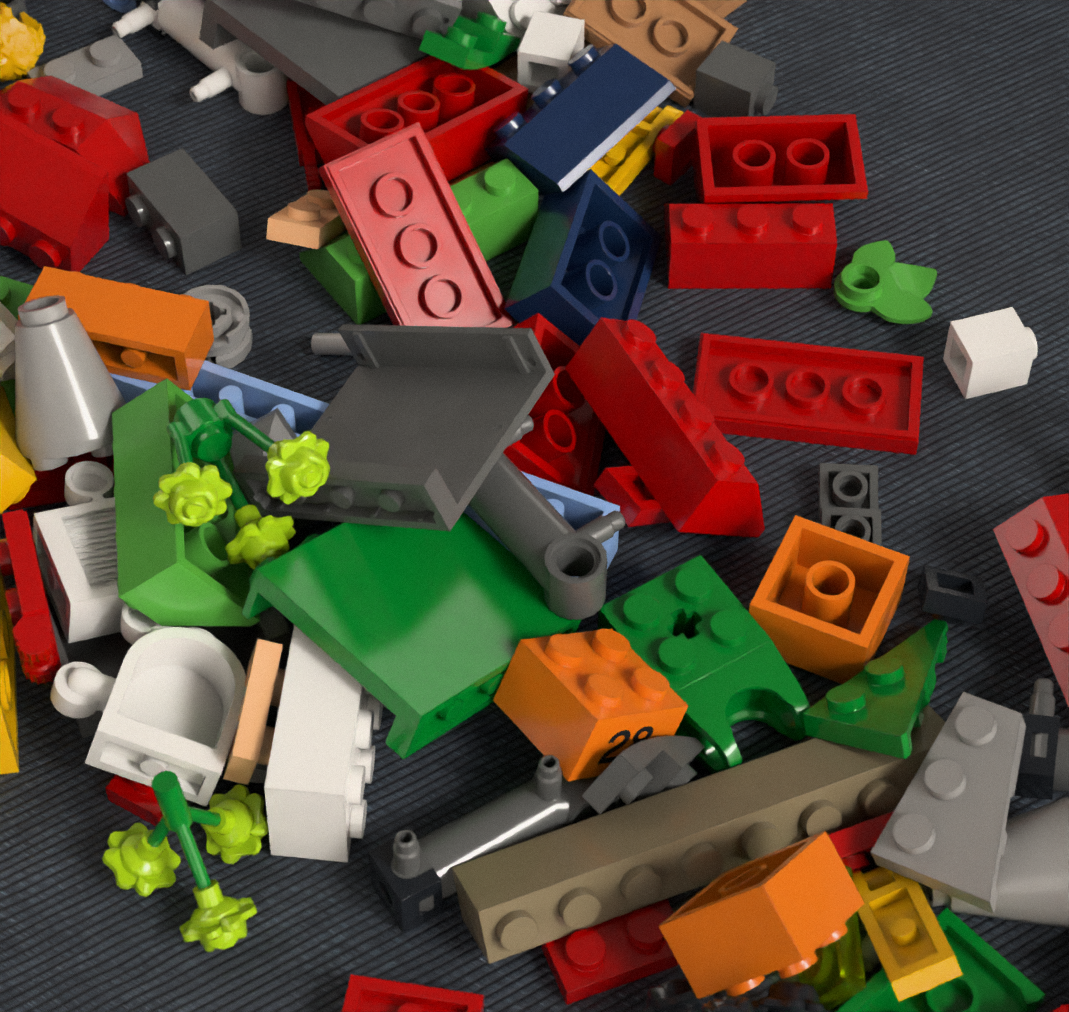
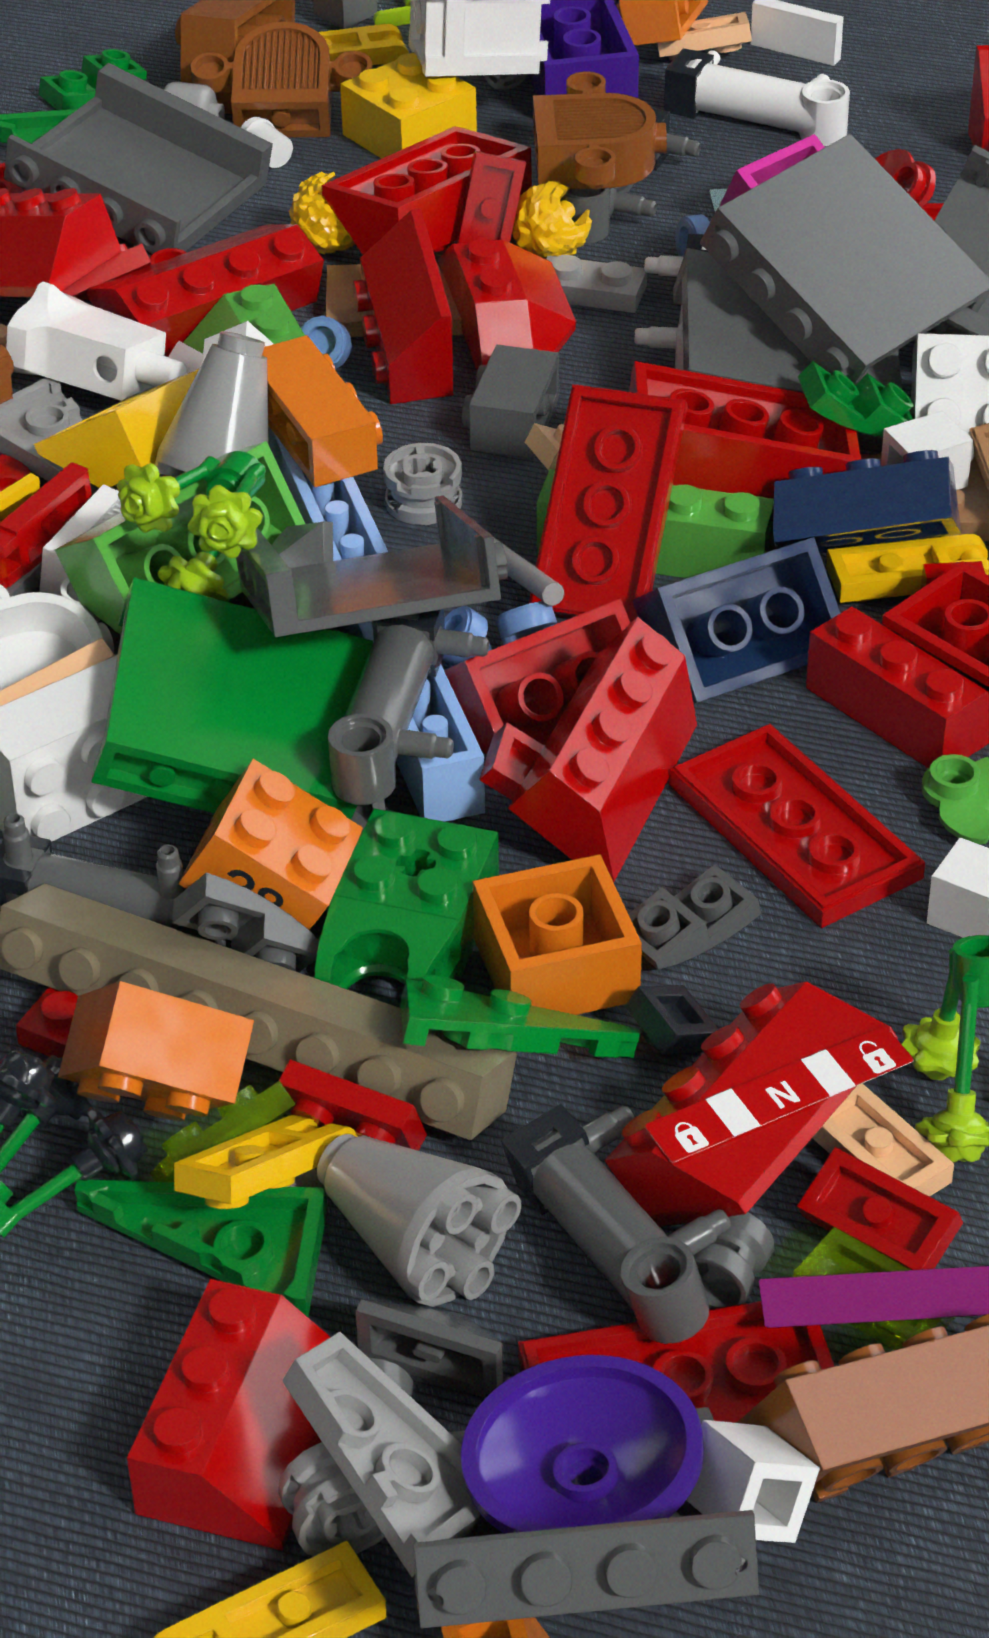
camera: 50 degrees right, 10 degrees down
(957, 805) = (383, 1107): light grey wing -> none

